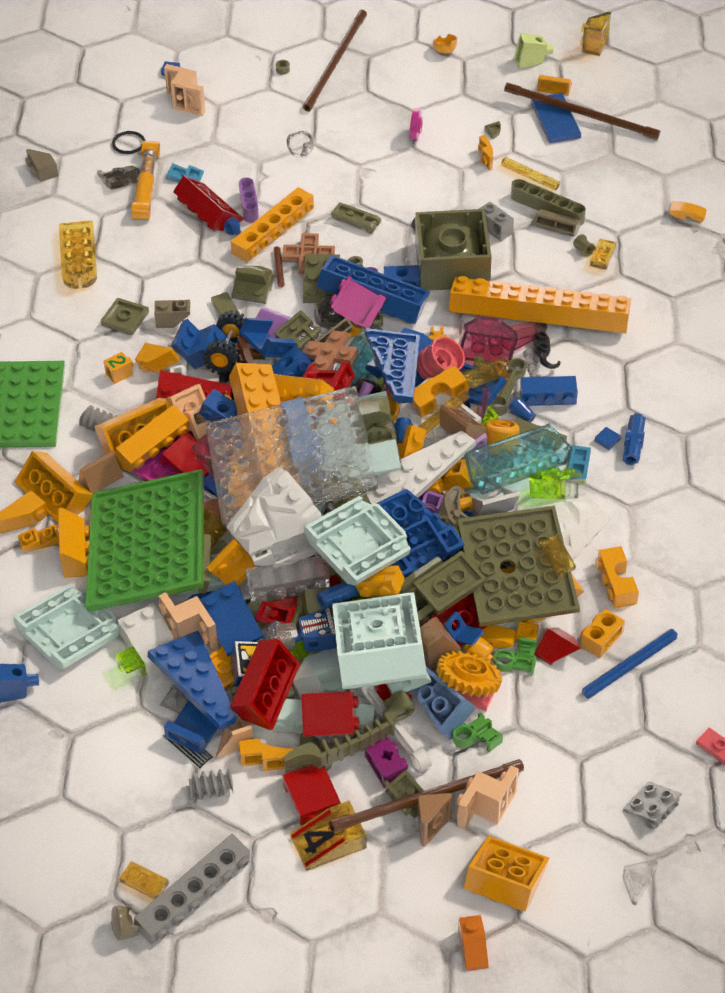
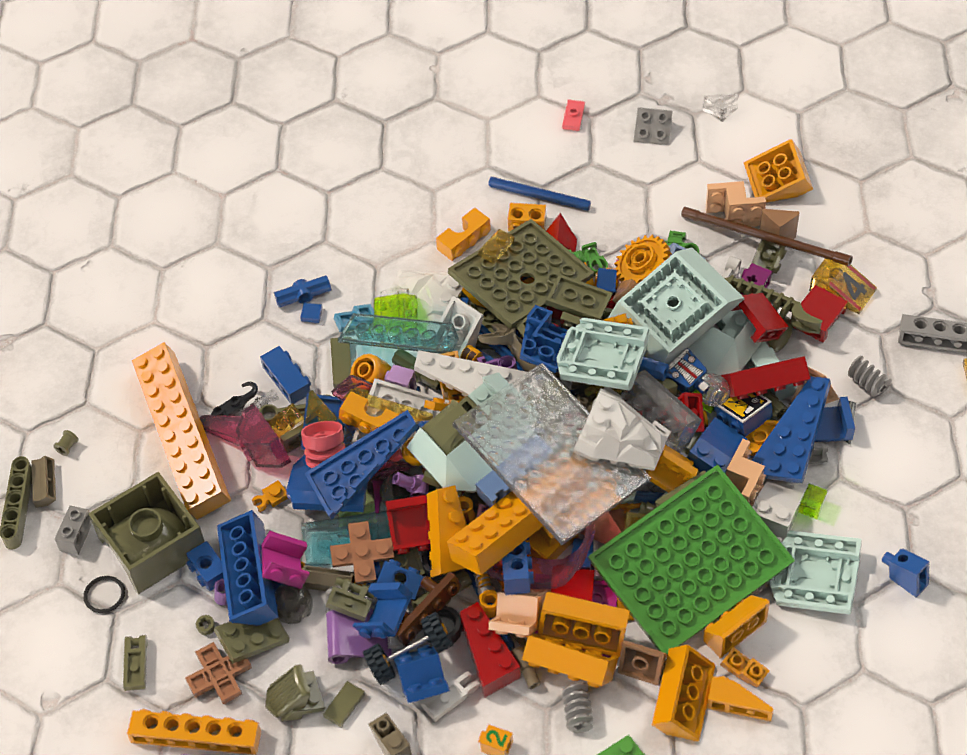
camera: 120 degrees left, 5 degrees up
(155, 358) = (466, 709): light orange slope -> none
(256, 753) = (811, 351): light orange slope -> none
(279, 268) = (251, 693): copper bar -> none
(457, 420) = (397, 380): medium nougat slope -> none
(473, 942) = (845, 166): orange slope -> none
(521, 409) = (322, 383): blue cone -> none
(603, 254) = (72, 421): clear yellow plate -> none

